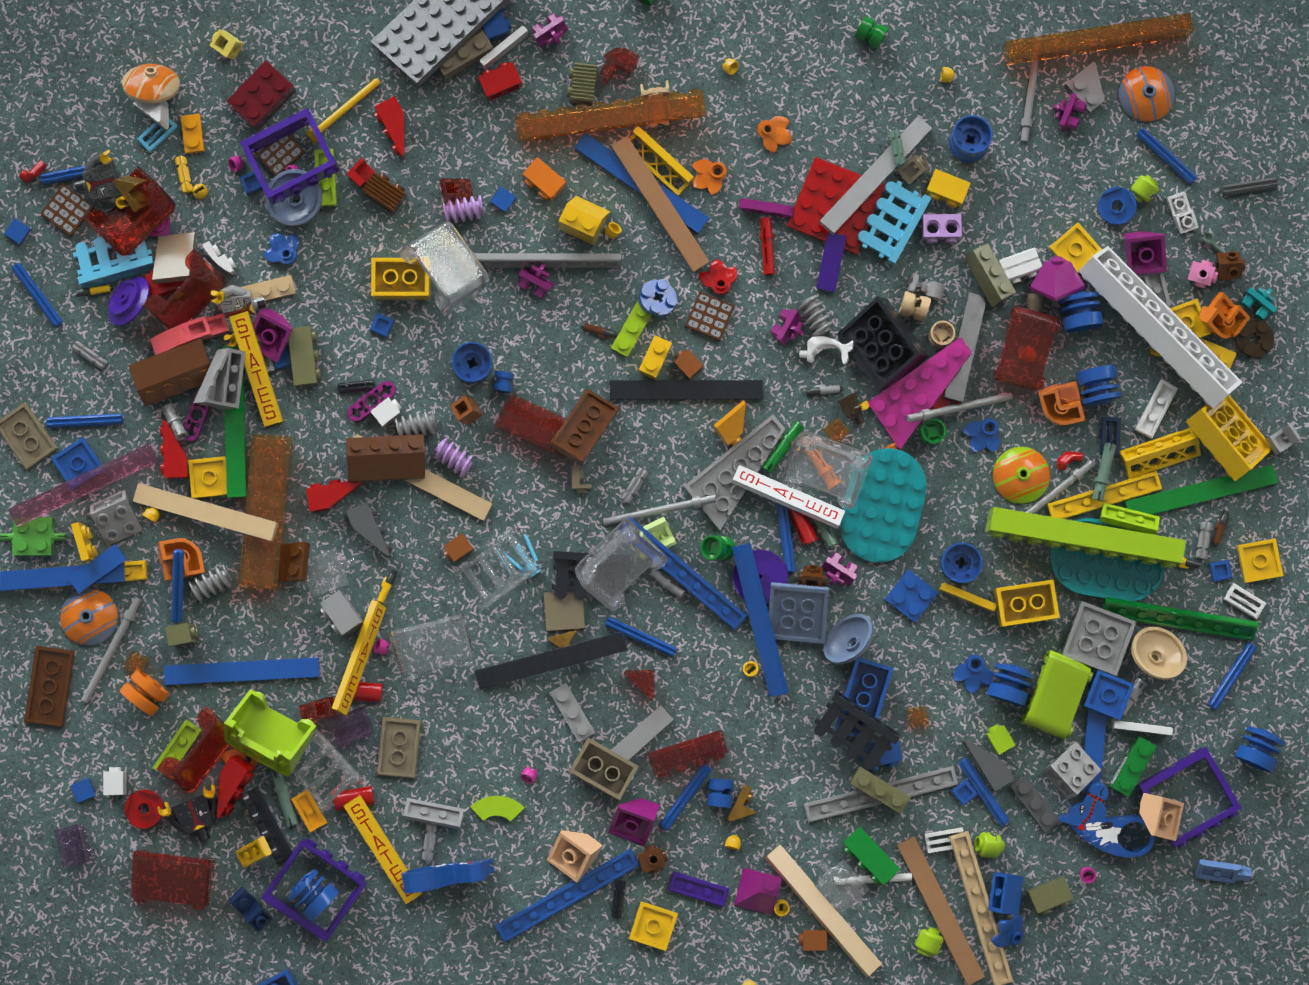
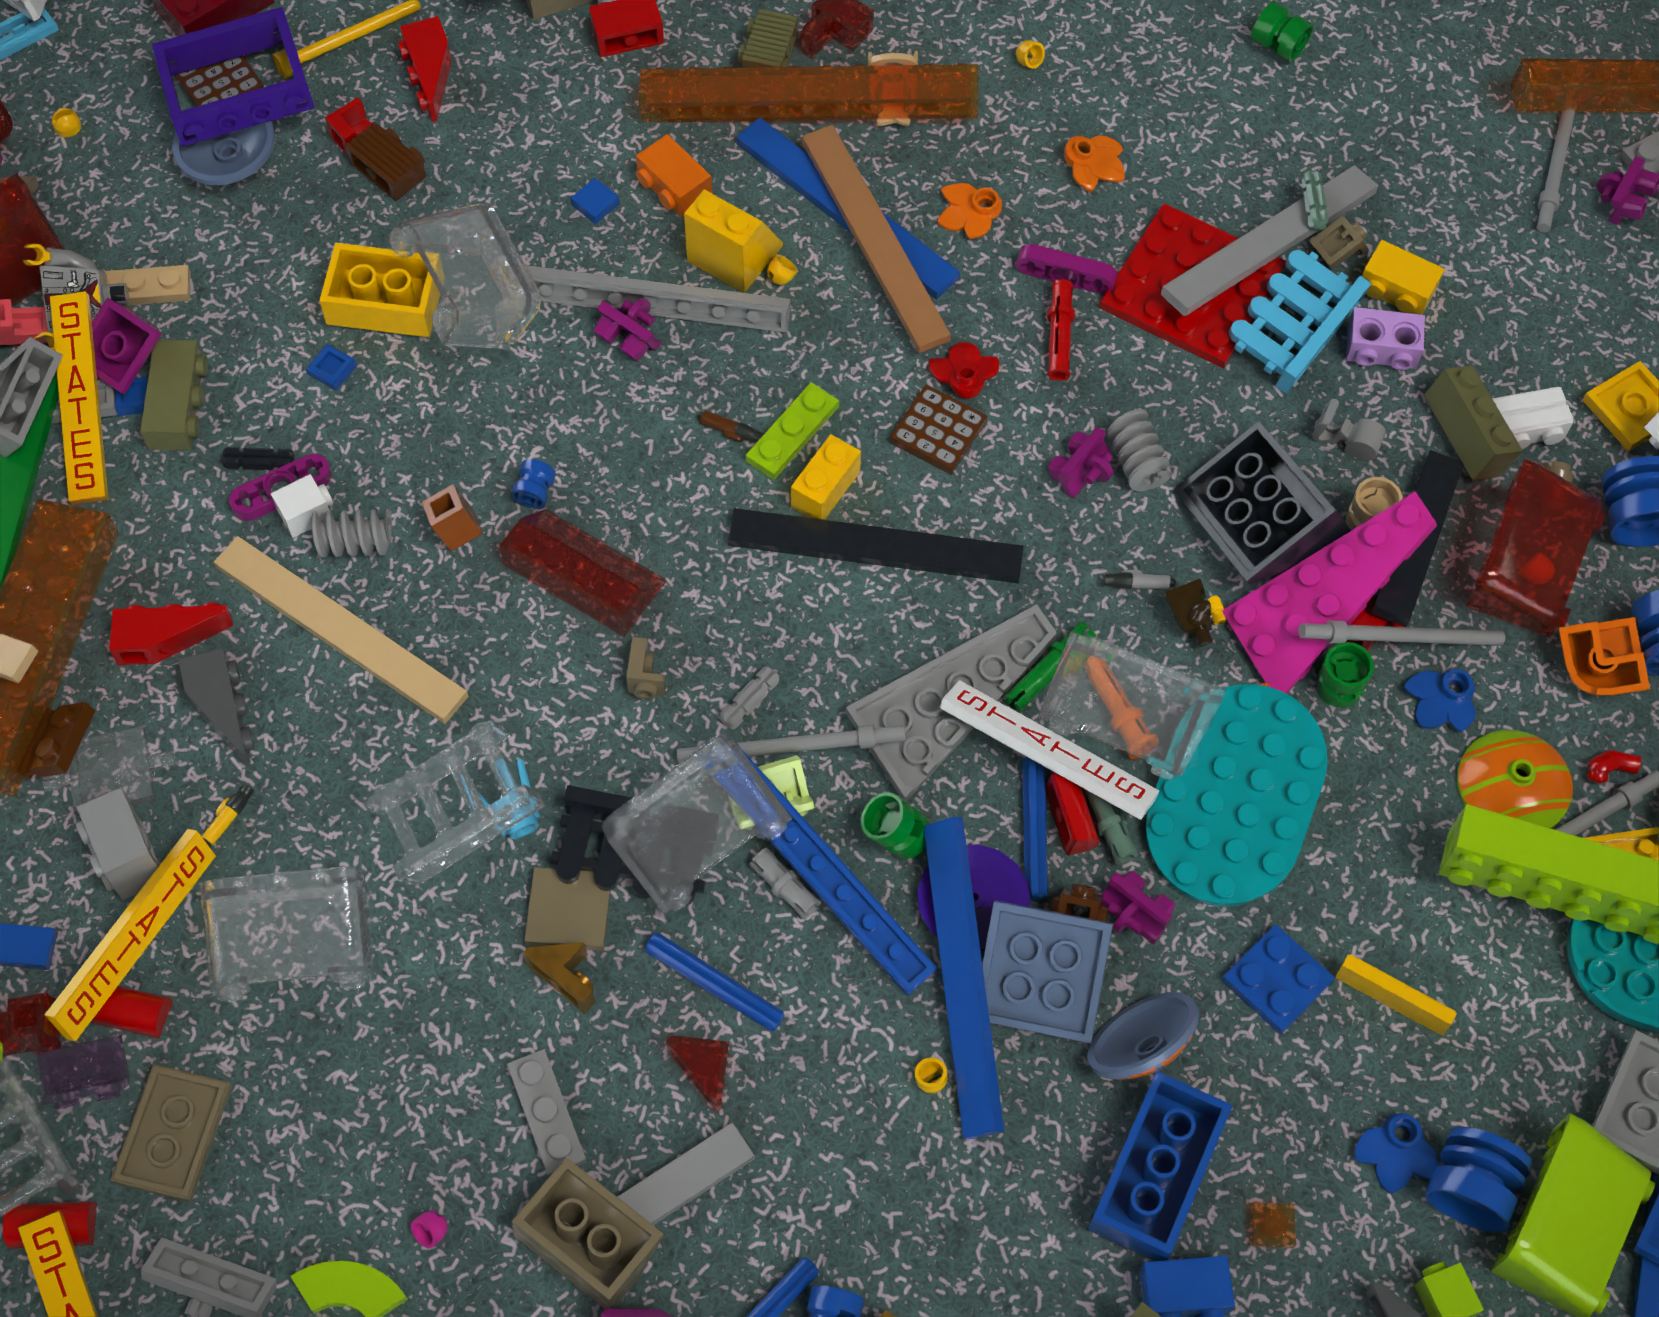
camera: 10 degrees right, 20 degrees down
(183, 174) = (45, 94): yellow axle -> none
(192, 133) = (79, 39): light orange plate -> none
(226, 264) = (68, 222): white slope -> none
(236, 163) = (140, 88): dark pink hinge -> none
(250, 183) = (157, 122): blue tile -> none
(280, 247) = (184, 226): blue plate -> none
(327, 185) = (290, 141): lime plate -> none
(380, 647) = (185, 927): dark pink hinge -> none
(385, 458) = (277, 574): reddish brown slope -> none
(453, 457) = (410, 598): lavender piece -> none
(455, 188) = (511, 171): clear red slope -> none
(457, 548) = (380, 760): dark orange brick -> none
(463, 209) = (522, 200): lavender piece -> none
(466, 353) = (472, 422): blue wheel -> none
(551, 660) = (521, 992): black tile -> none
(584, 427) = (669, 573): reddish brown tile -> none
(659, 288) = (850, 369): plate -> none
(665, 158) = (895, 170): yellow fence -> none
(687, 752) = (772, 1224): clear red slope -> none
(688, 364) = (886, 498): dark orange brick -> none
(731, 425) = (951, 606): light orange slope -> none
(819, 343) = (1138, 495): white animal -> none
(831, 262) = (1176, 366): dark purple tile -> none
(836, 430) = (1158, 647): clear orange plate -> none
(866, 732) = (1161, 1230): black fence -> none
(909, 301) = (1326, 456): tan wheel -> none
(947, 75) = (1410, 111): yellow hinge -> none
(970, 556) = (1402, 904): blue wheel -> none
(972, 129) = (1449, 202): blue wheel -> none
(1026, 603) = (1518, 1020): yellow brick -> none
(1057, 279) = (1601, 436): magenta slope -> none

